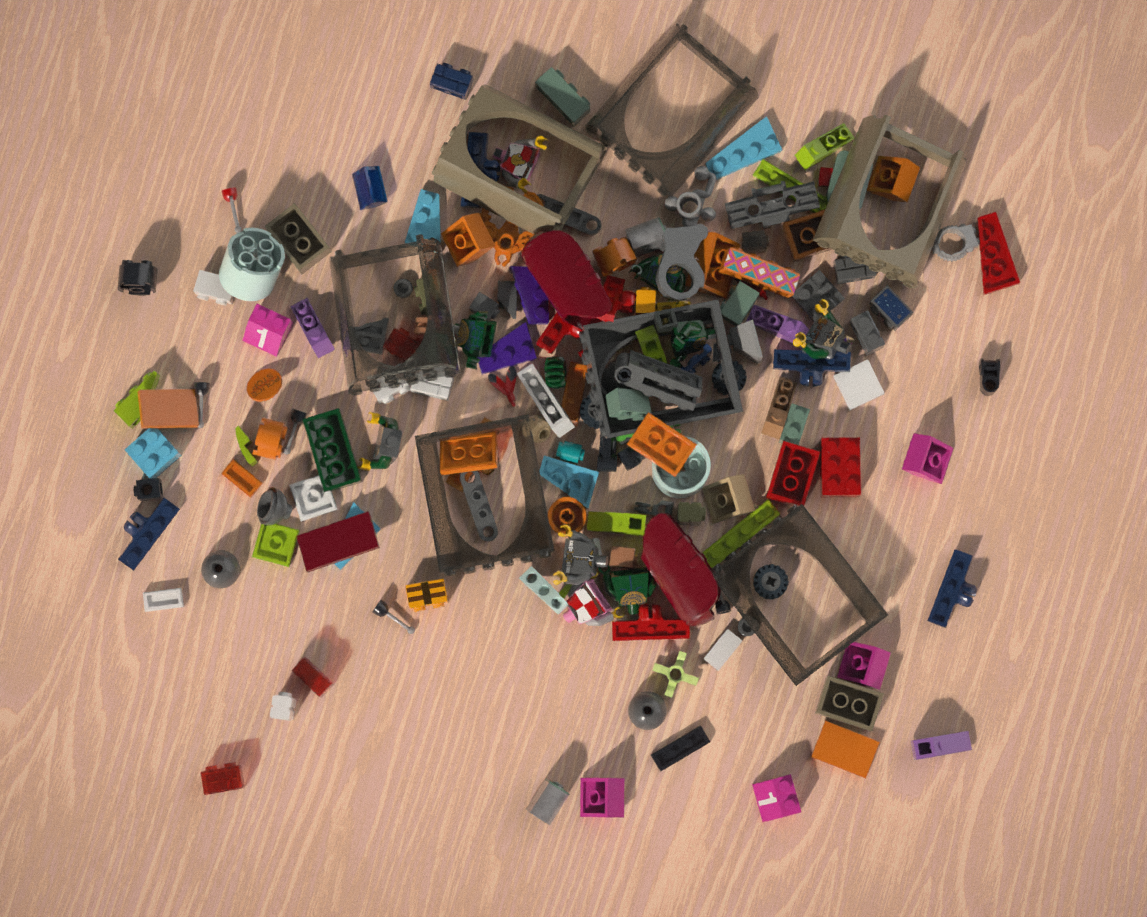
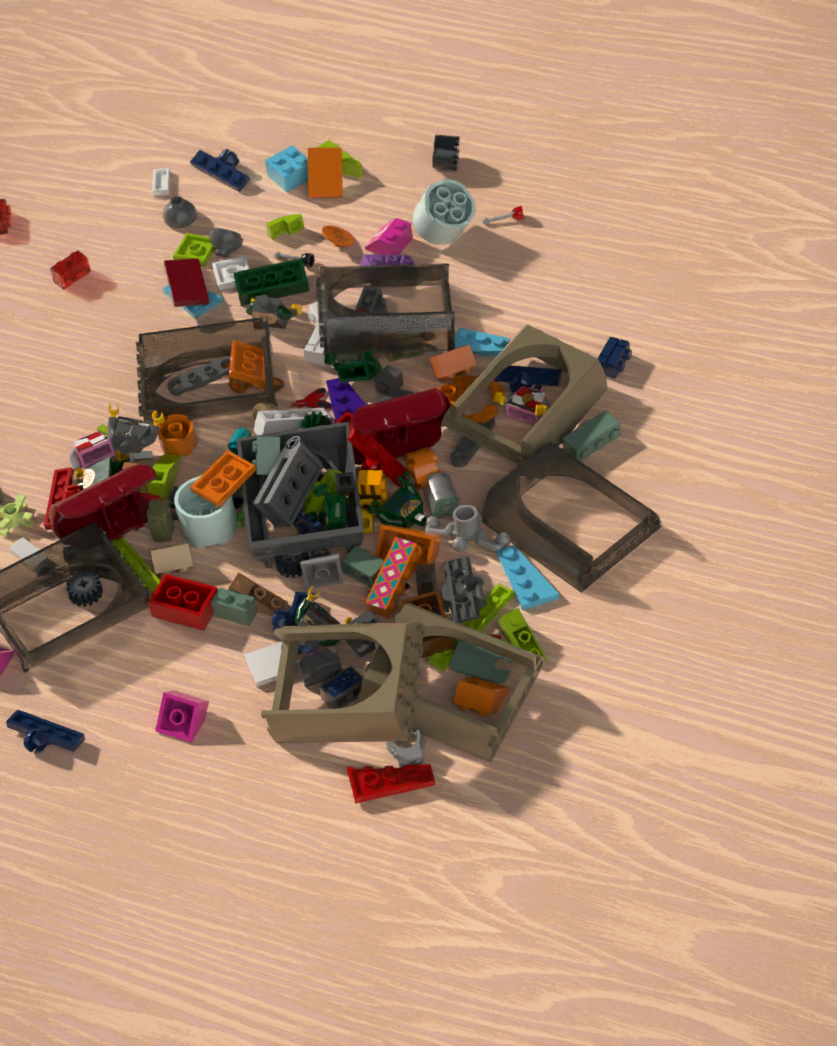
camera: 95 degrees right, 35 degrees down
(157, 489) = (257, 168): black brick -> none
(201, 389) = (342, 199): hinge -> none
(242, 478) = (256, 228): orange tile -> none
(269, 439) = (287, 236): orange brick -> none
(283, 706) = (47, 246): white brick -> none
(298, 238) = (469, 252): dark tan brick -> none
(369, 187) = (514, 302): clear blue brick -> none
(382, 610) = (120, 315): hinge -> none
(427, 594) = (125, 340): brick -> none
(543, 590) = (98, 417): light aqua leg -> none
(570, 478) = (215, 443): medium azure wing -> none
(679, 250) = (420, 505): dark grey animal -> none
(776, 323) = (340, 596): medium lavender slope -> none
(840, 467) = (185, 642): red brick -> none
(881, 249) = (379, 718): none -> dark tan panel
(989, 372) = (257, 770): black piece -> none

